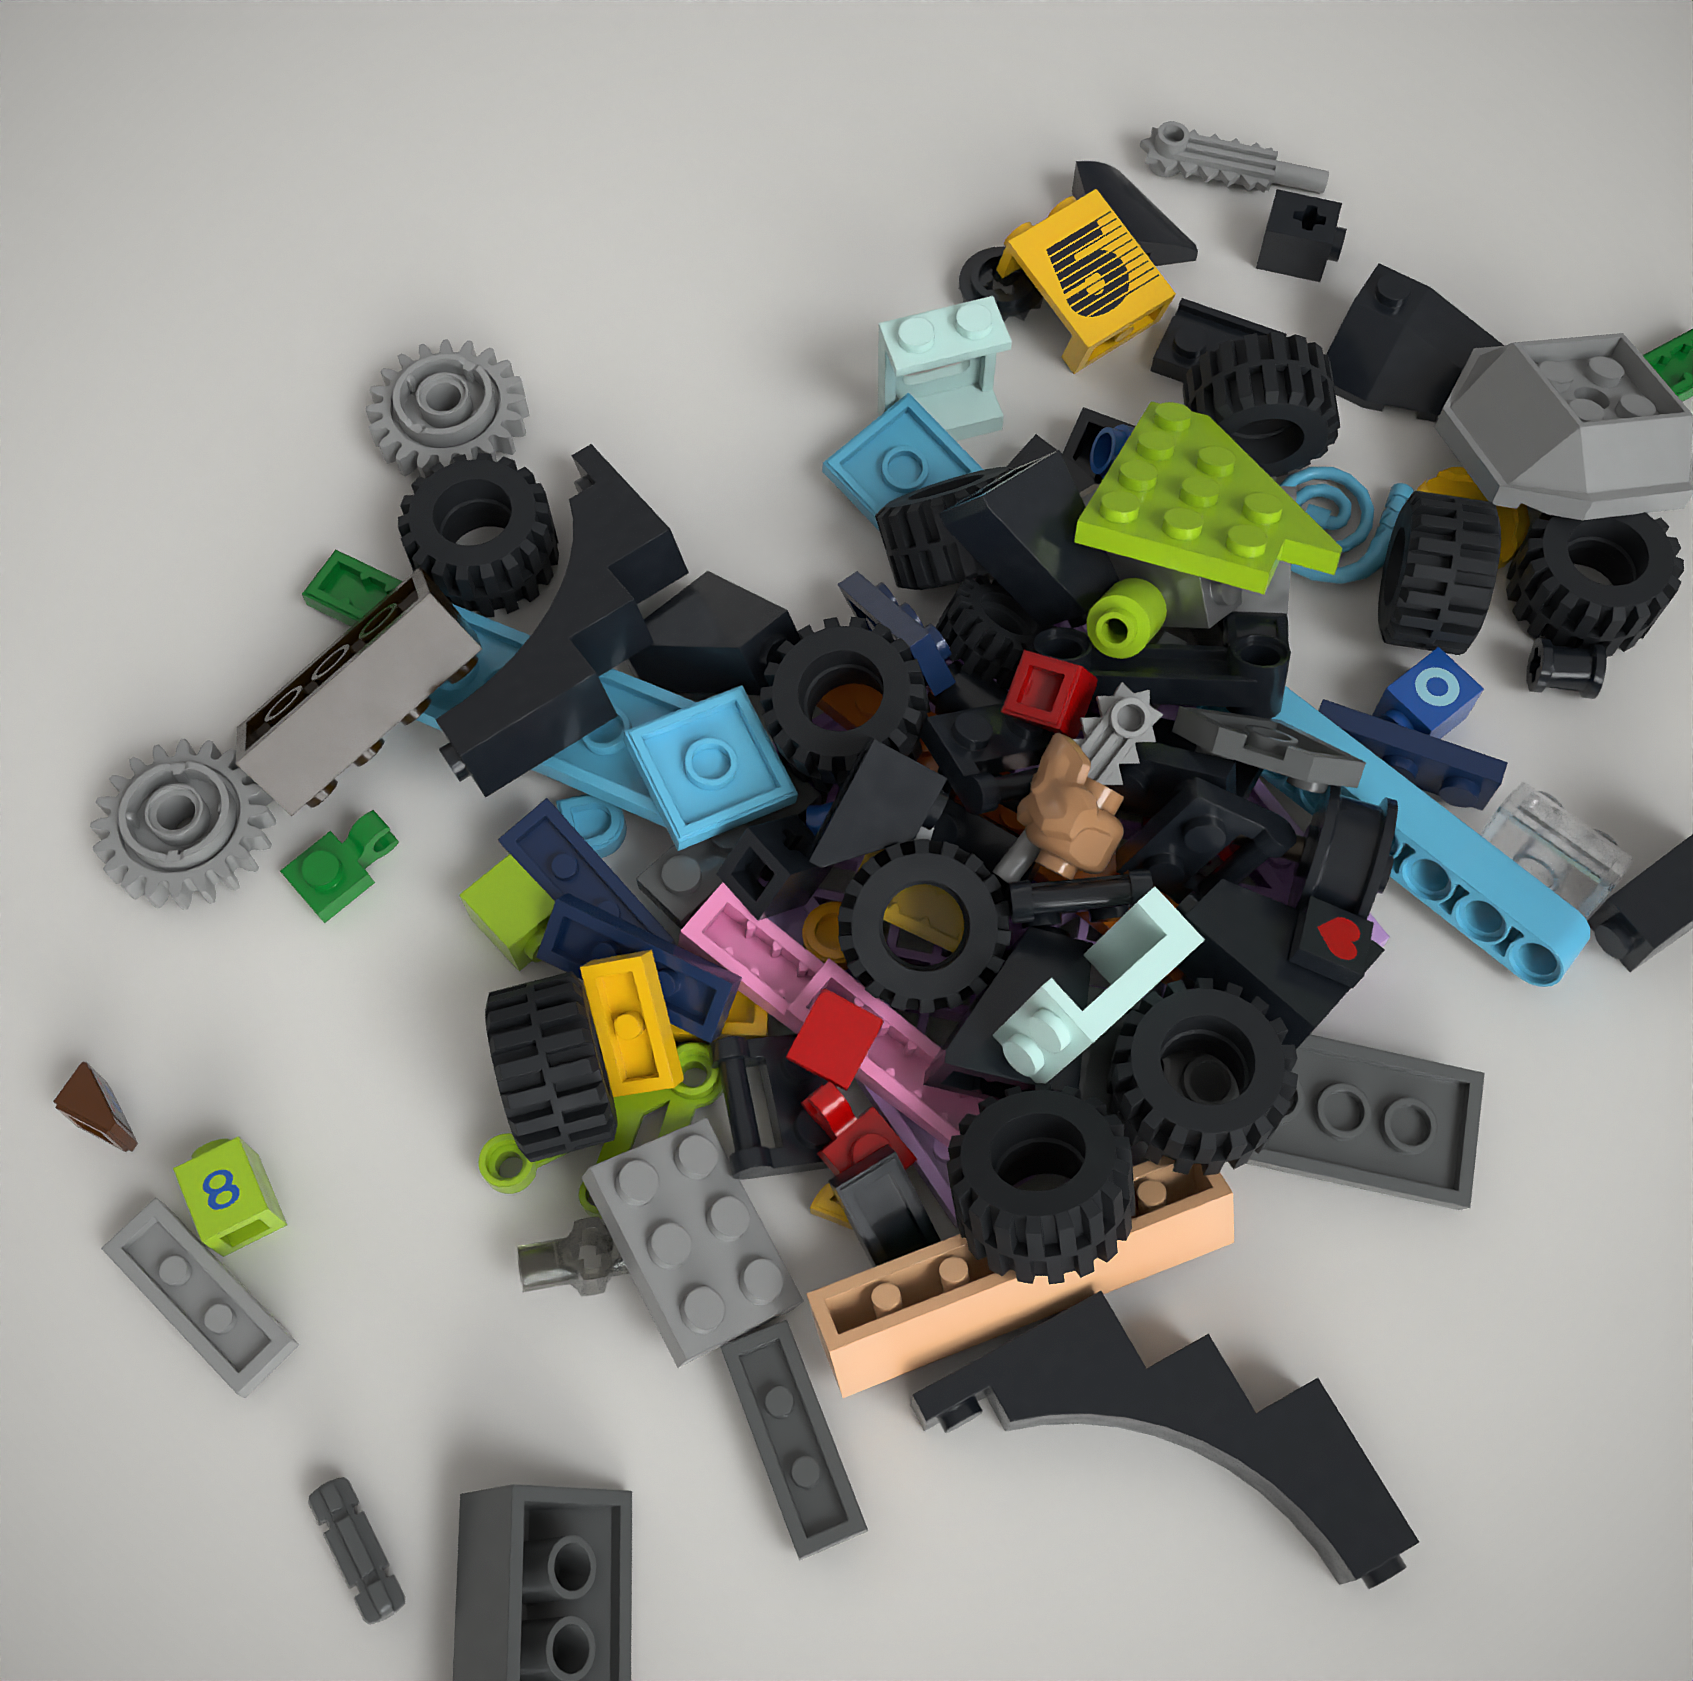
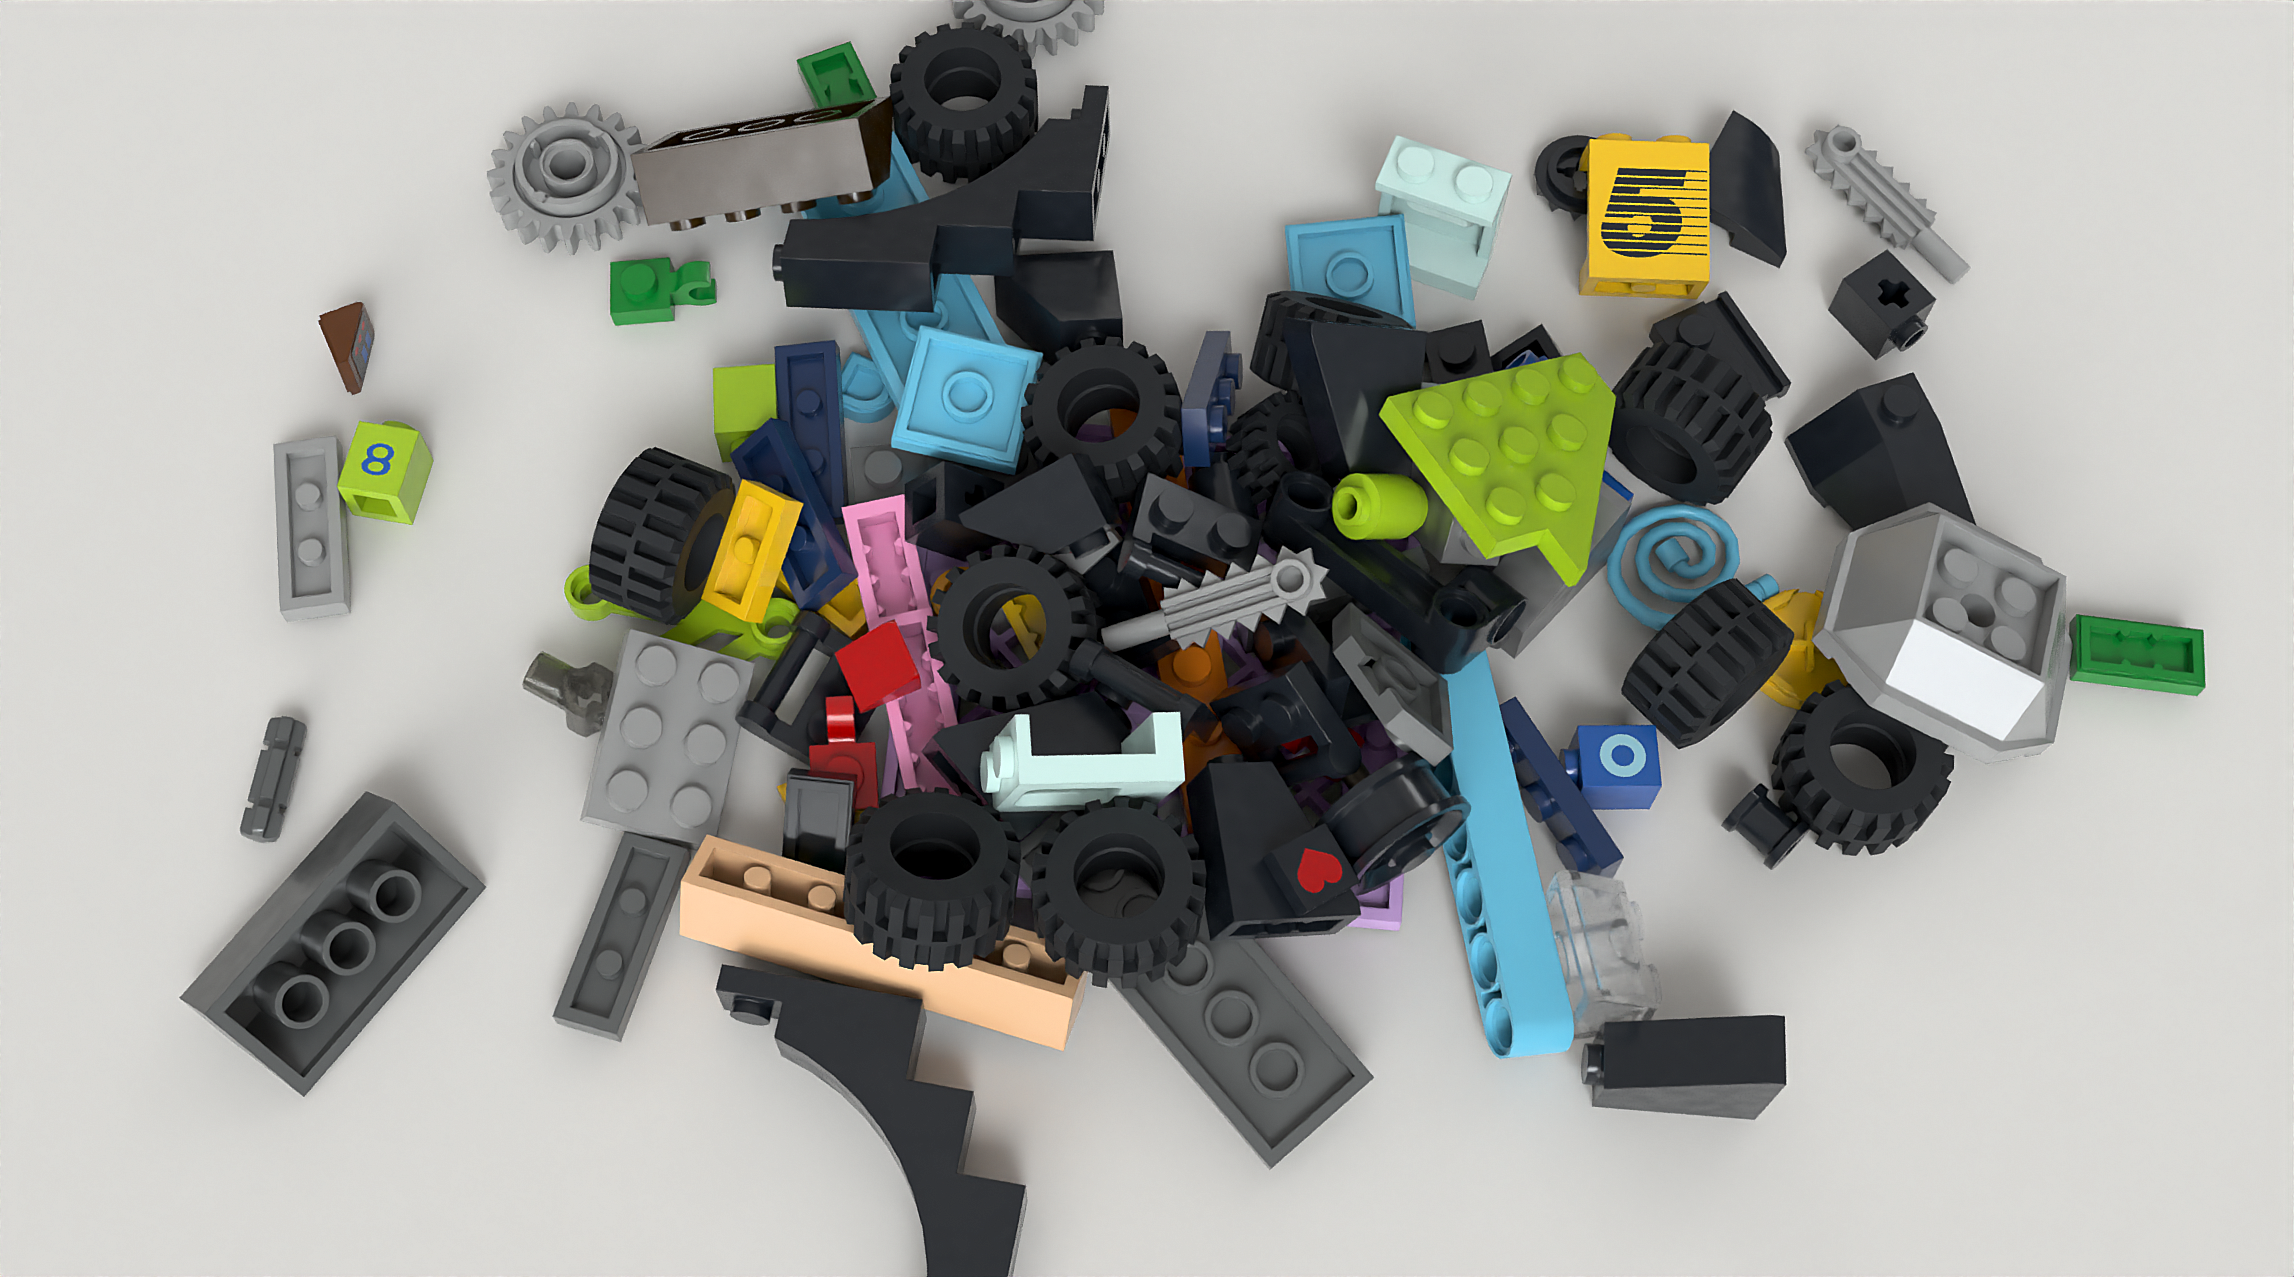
camera: 35 degrees right, 0 degrees up
(1050, 694) = (1259, 521): red slope -> none
(1070, 812) = (1176, 620): medium nougat head -> none

